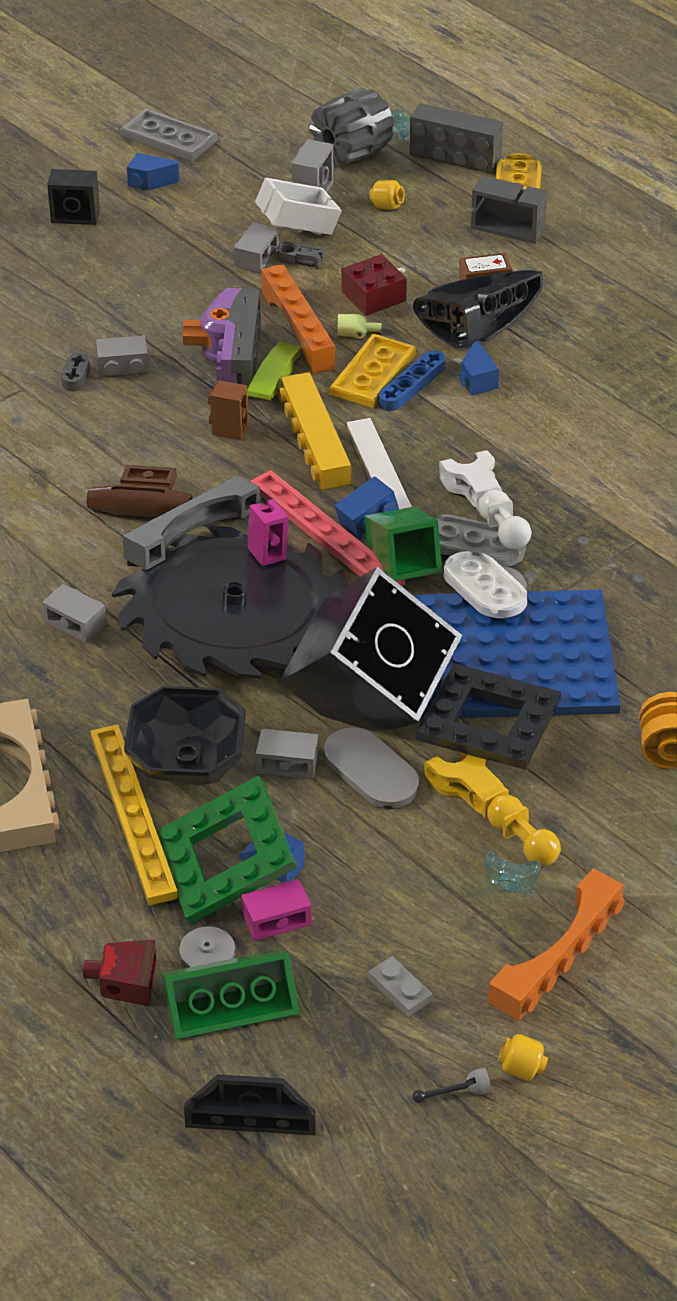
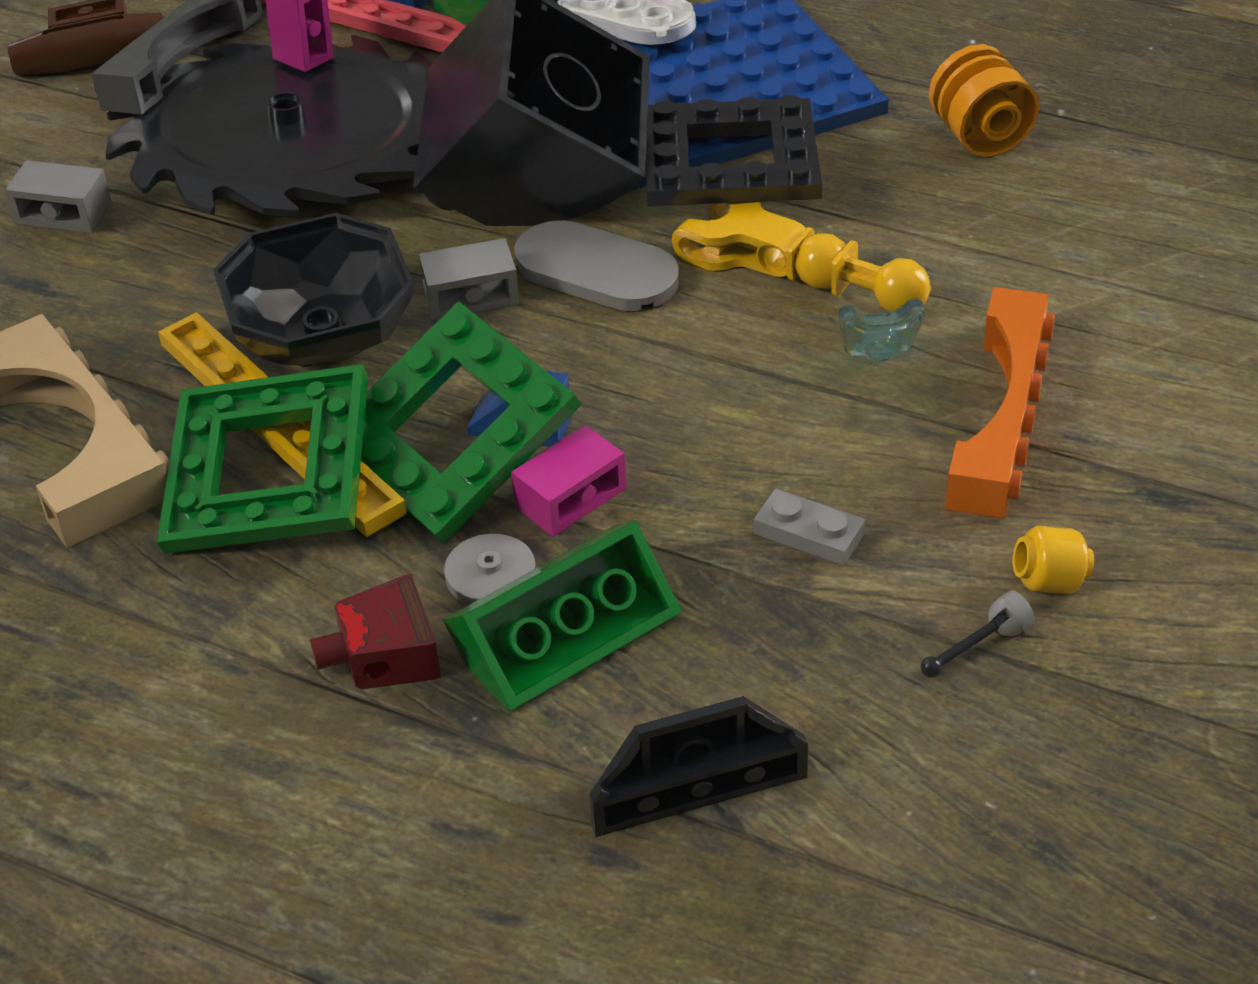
camera: 20 degrees left, 0 degrees up
(128, 879) = (327, 501): none -> green plate

